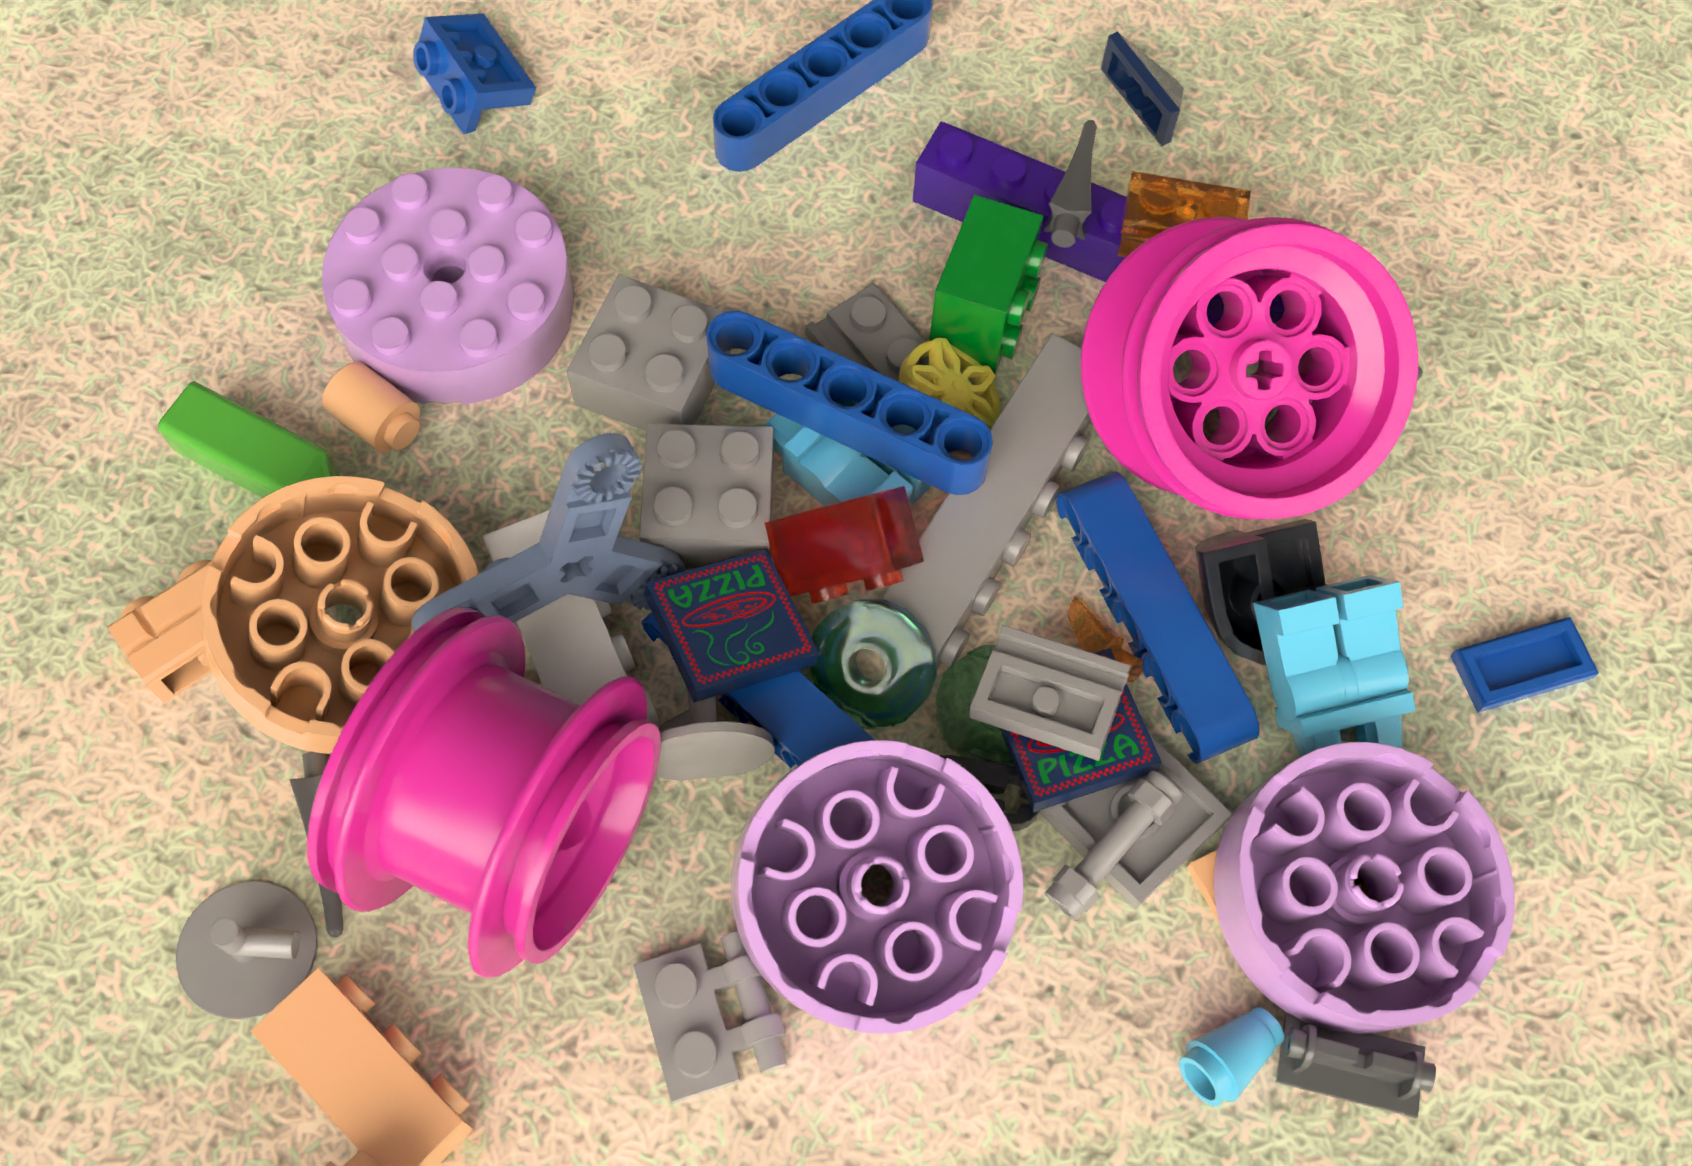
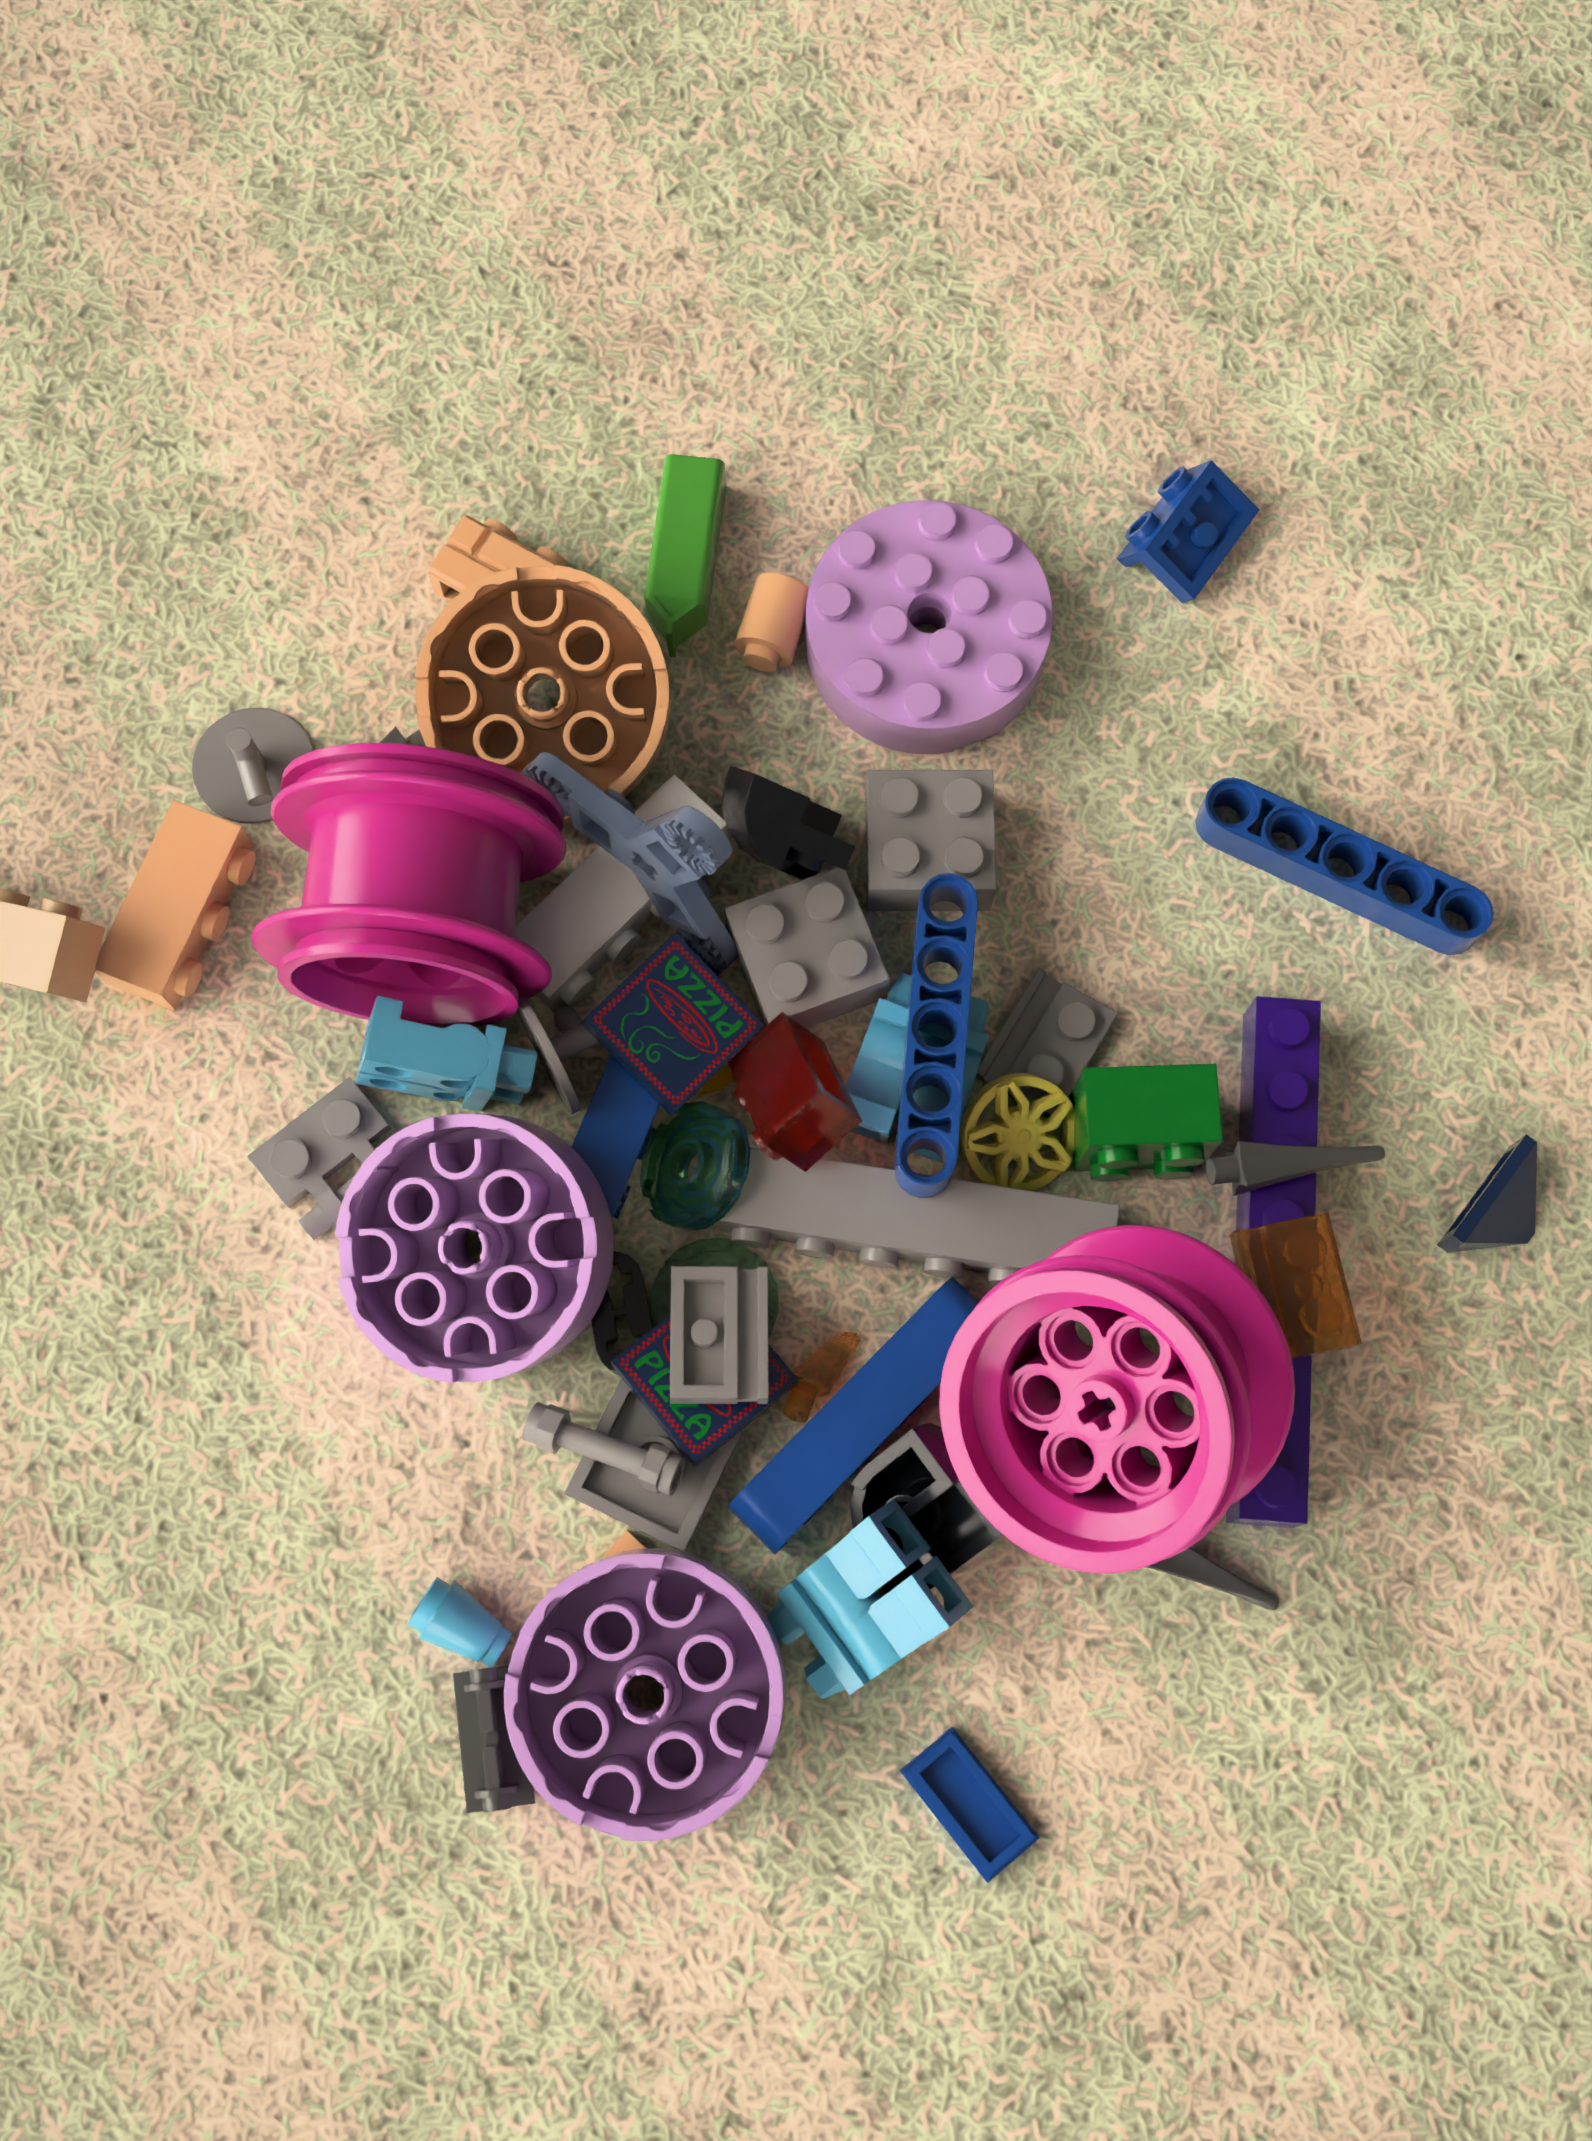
camera: 70 degrees right, 10 degrees up
(543, 460) = (781, 825): none -> black brick
(645, 887) = (442, 1061): none -> medium azure hips

